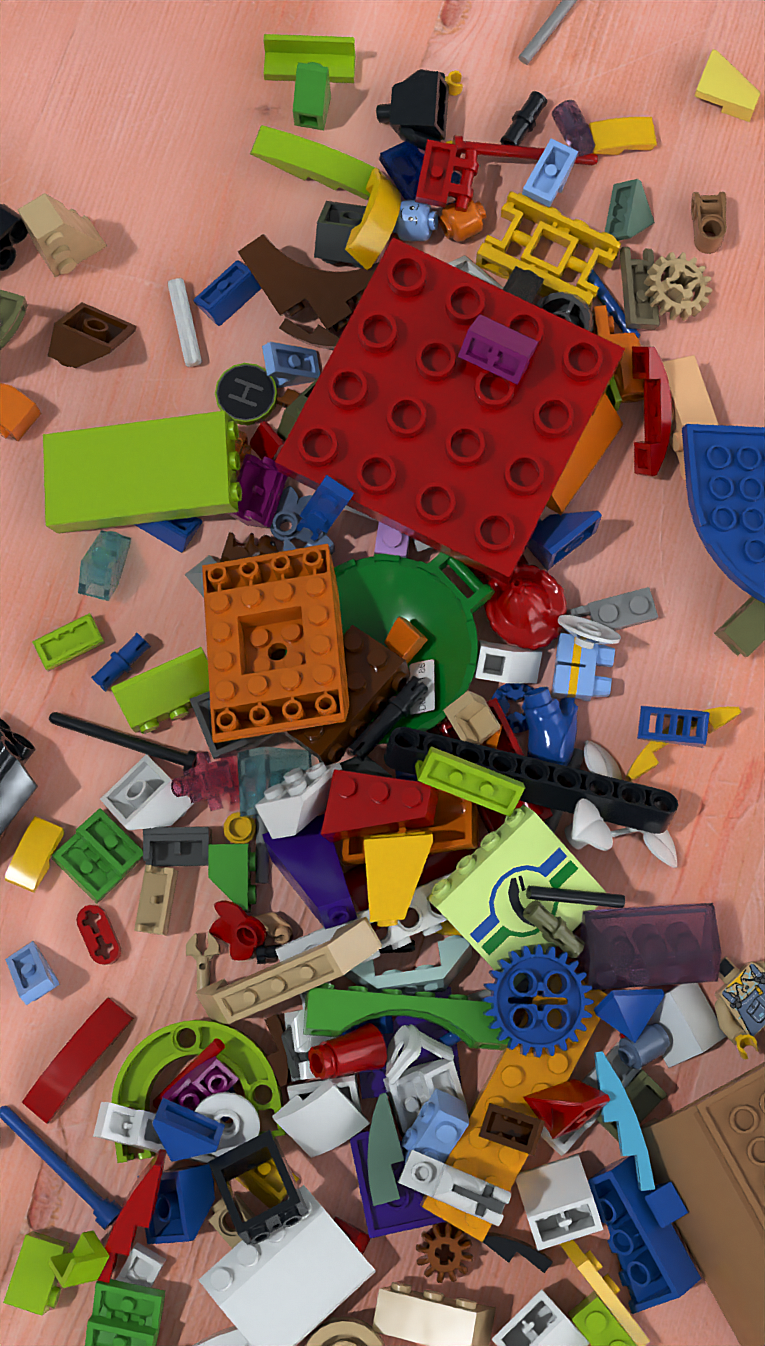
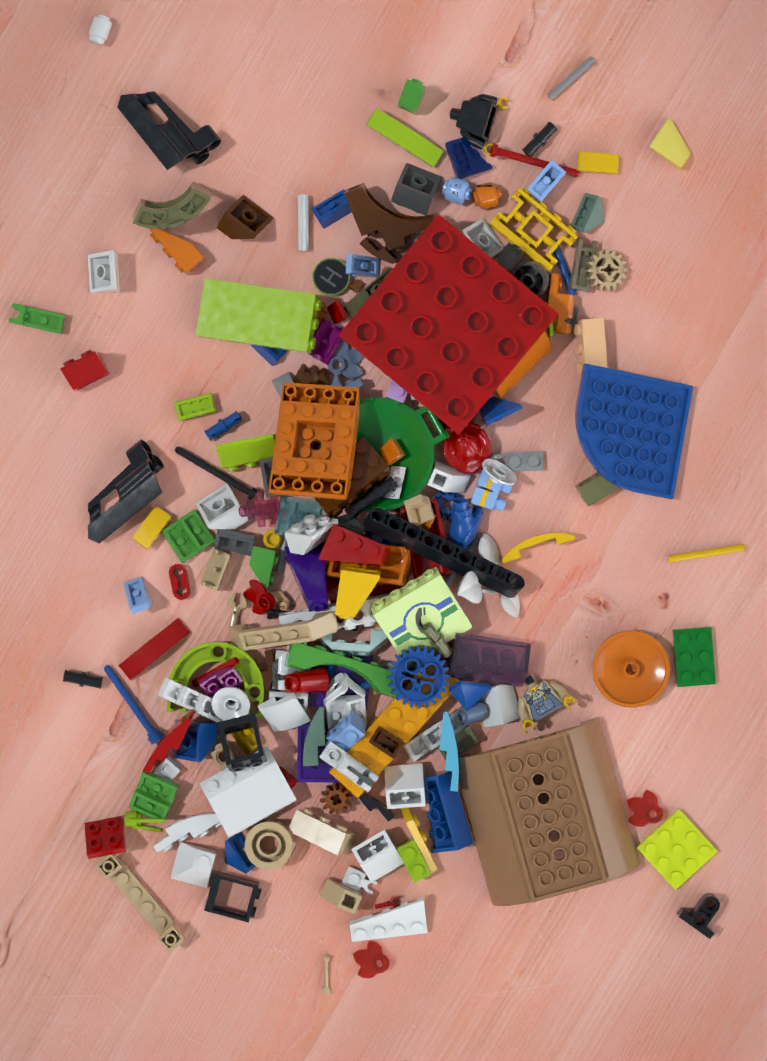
camera: 10 degrees right, 10 degrees up
(33, 1281) = (110, 760): lime brick -> none
(60, 234) = (240, 154): tan wedge -> none
(82, 1264) = (138, 760): lime panel -> none
(103, 565) = (225, 365): clear light blue slope -> none
(185, 1131) = (208, 704): blue slope -> none
(285, 52) = (416, 68): lime panel -> none
(324, 507) = (361, 366): blue plate -> none
(378, 221) = (436, 188): yellow slope -> none
(436, 175) = (476, 169): red plate -> none
(469, 781) = (407, 549): lime panel -> none
(497, 349) = (483, 301): magenta hinge -> none
(566, 1106) = (420, 736): red slope -> none
(573, 127) = (569, 152): clear purple hinge -> none
(575, 896) = (453, 624): black bar -> none
(657, 410) = (565, 368): red slope -> none
(665, 1204) = (462, 800): blue slope -> none
(674, 714) = (546, 550): blue slope -> none
(708, 216) = (636, 227): medium nougat piece -> none

